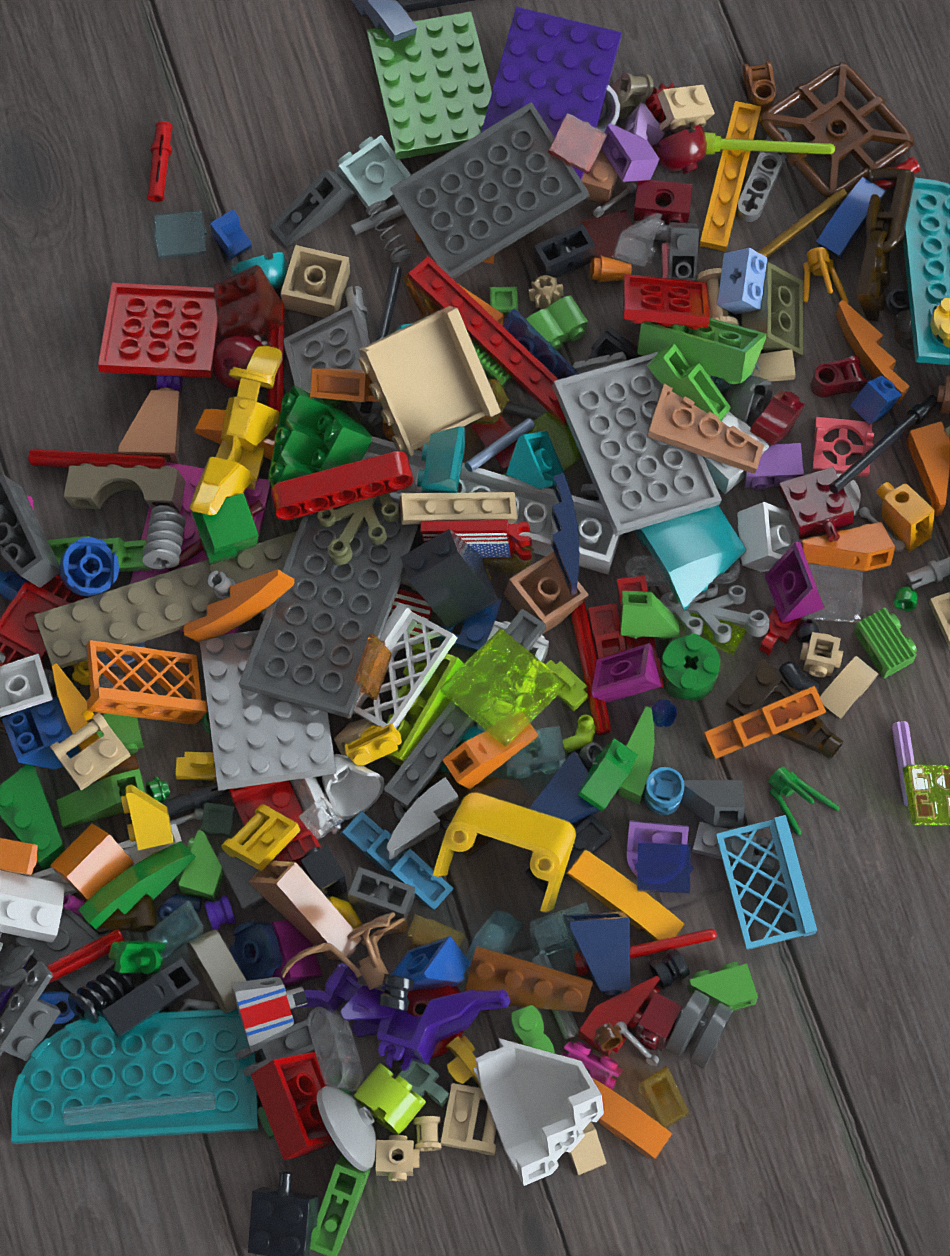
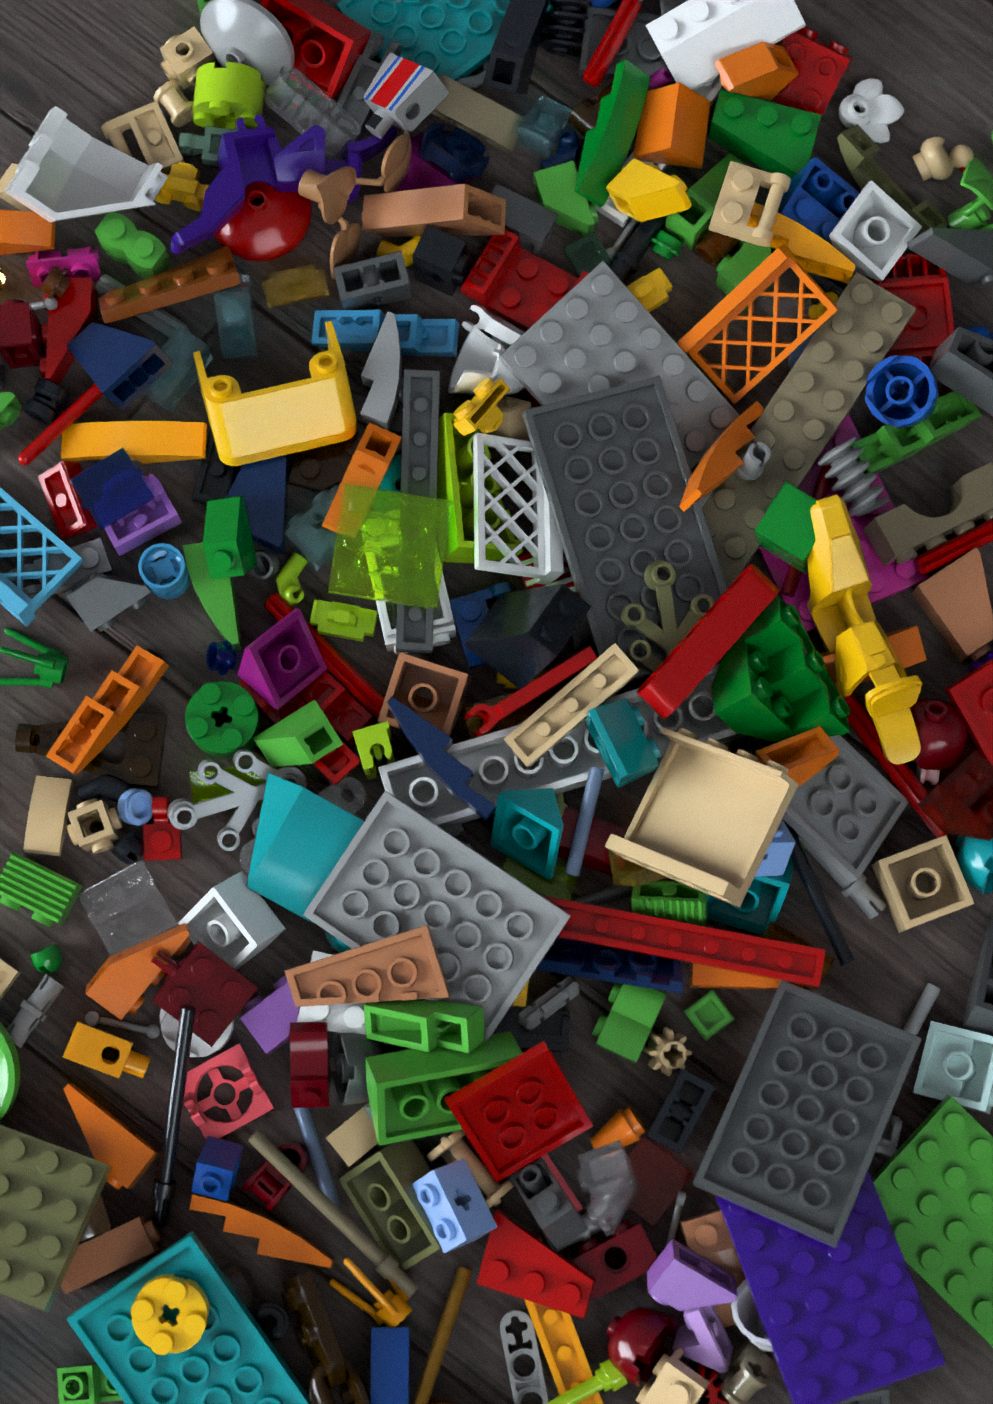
camera: 145 degrees right, 10 degrees up
(137, 956) = (555, 70): green hips -> none
(219, 912) = (517, 170): dark purple wheel -> none
(266, 841) = (515, 247): yellow plate -> none
(321, 818) = (481, 309): clear slope -> none
(373, 666) = (537, 479): clear orange piece -> none
(375, 208) = (860, 989): light grey piece -> none
(396, 992) = (281, 175): black wheel -> none
(433, 965) = (276, 237): blue slope -> none
(577, 143) = (749, 1233): clear red piece -> none
(601, 582) = (372, 743): none -> lime hinge
(698, 904) = (64, 500): none -> red slope
(718, 221) = (532, 1271): none -> red wing
(785, 653) = (135, 806): none -> light blue tile
(793, 585) = (168, 879): magenta slope -> none
(806, 287) = (384, 1263): none -> dark tan bar
(808, 370) = (317, 1154): none -> sand blue bar

